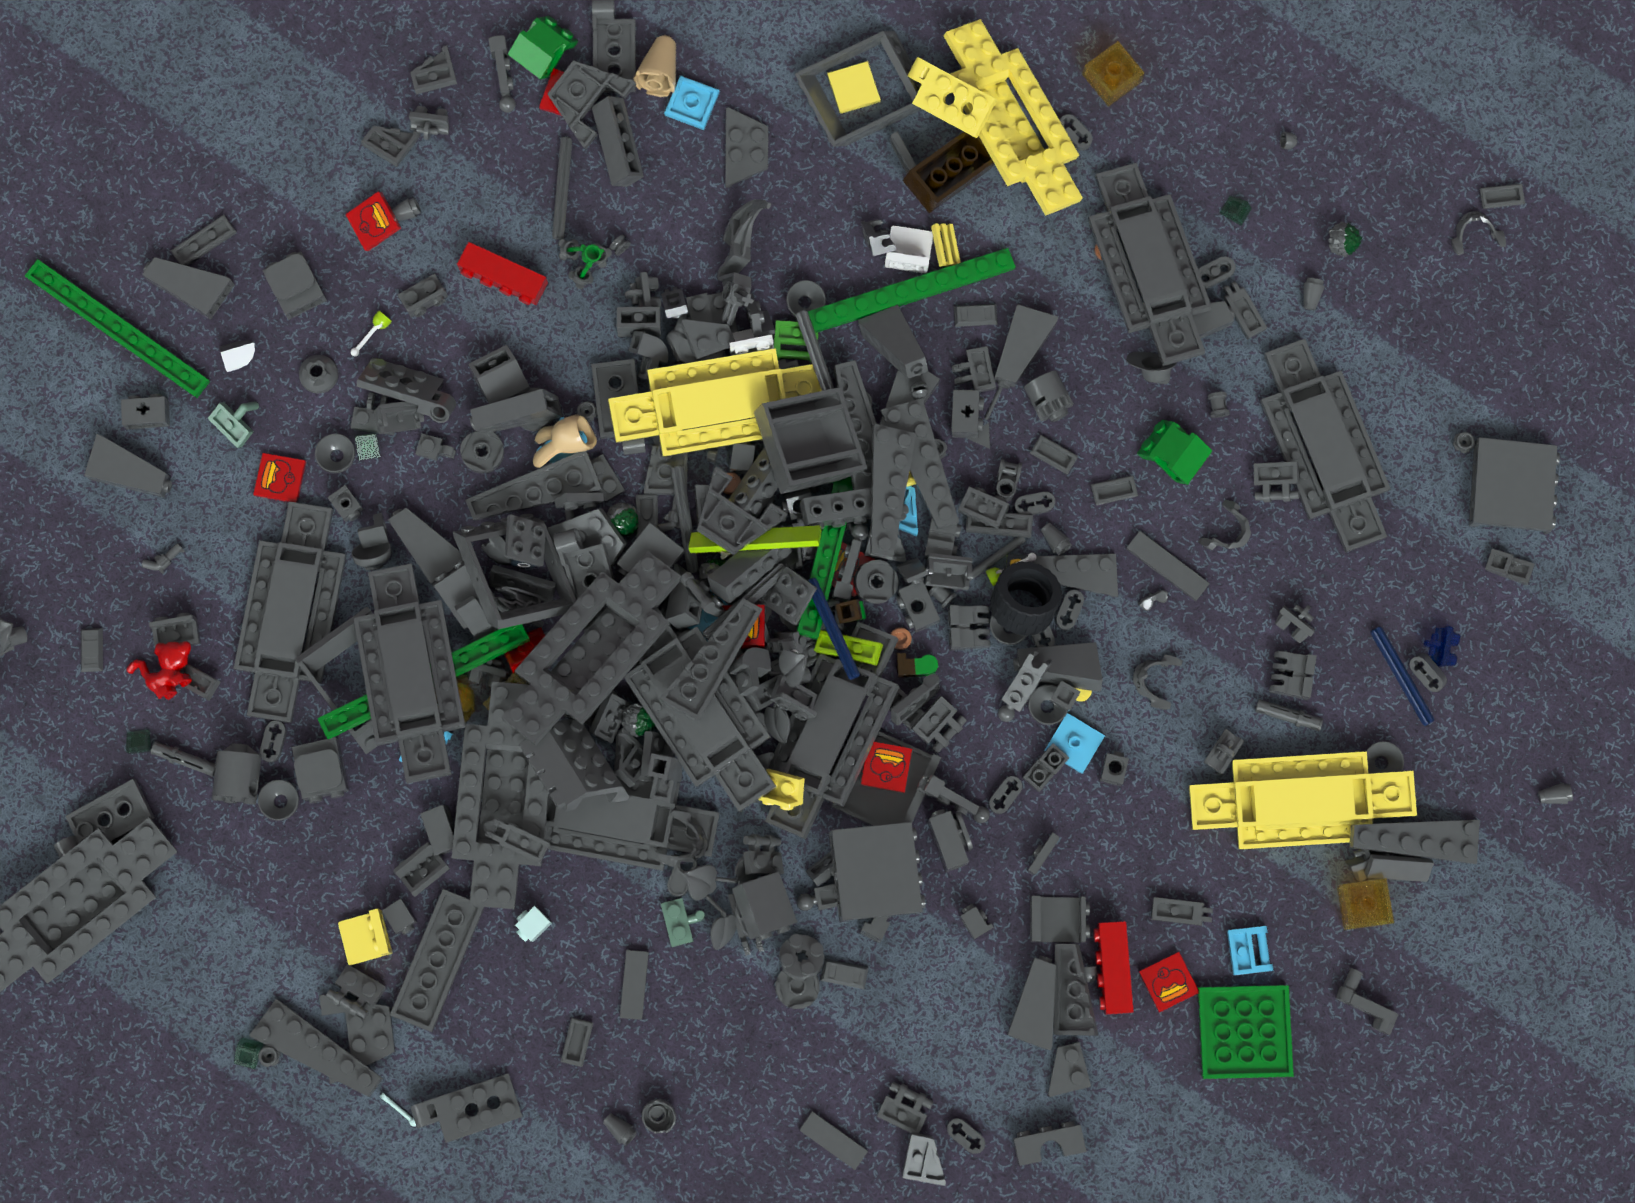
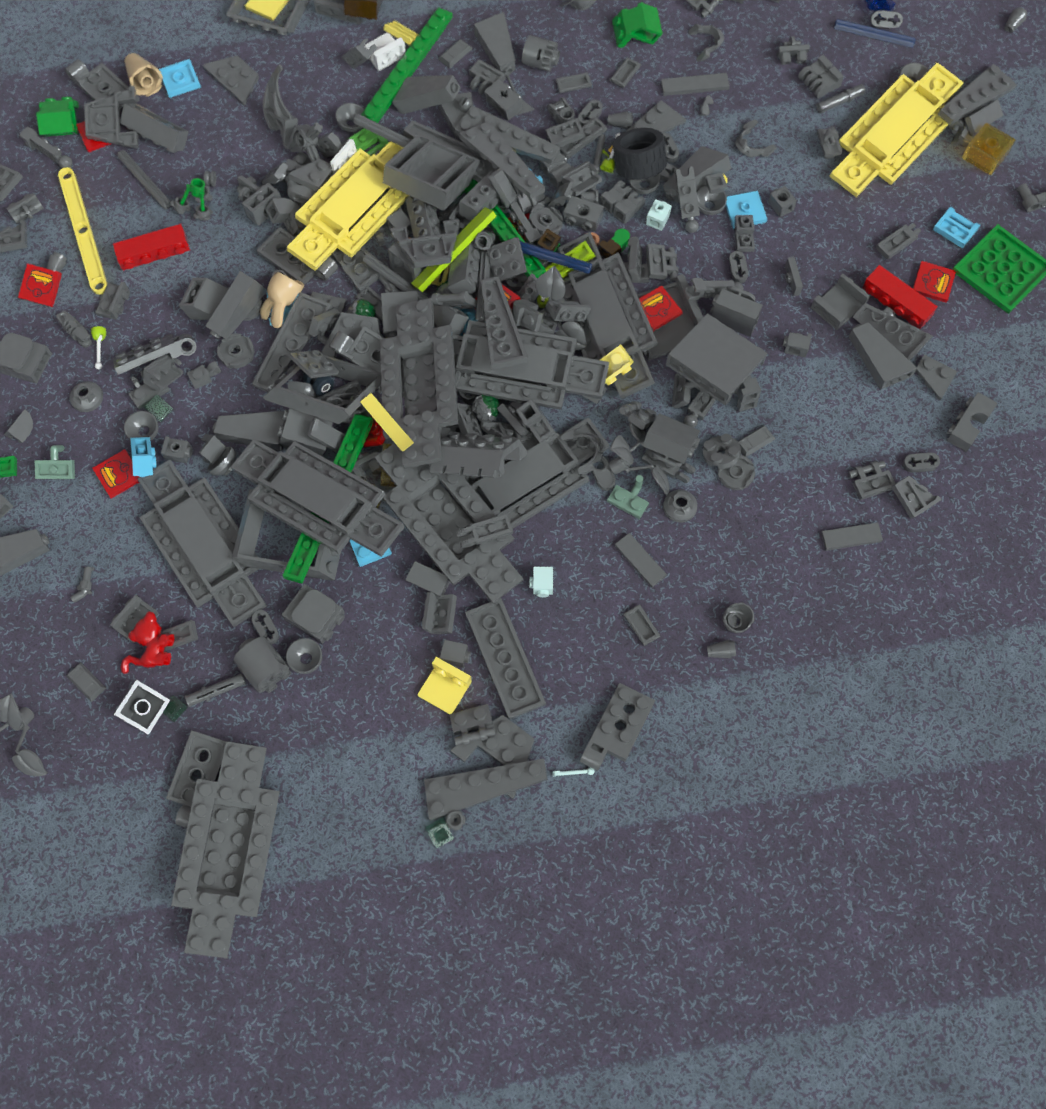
camera: 40 degrees left, 10 degrees down
(113, 719) = (141, 707): none -> dark grey slope
(310, 483) = (142, 456): none -> medium azure brick
(365, 294) = (74, 328): none -> dark grey hinge
(468, 180) = (85, 240): none -> light yellow beam
(525, 665) = (388, 424): none -> light yellow sticker
(718, 982) = (678, 513): none -> dark grey piece
(789, 558) = (484, 240): none -> dark grey cone
(859, 518) = (503, 187): none -> dark grey tile
(986, 673) = (658, 214): none -> light aqua brick

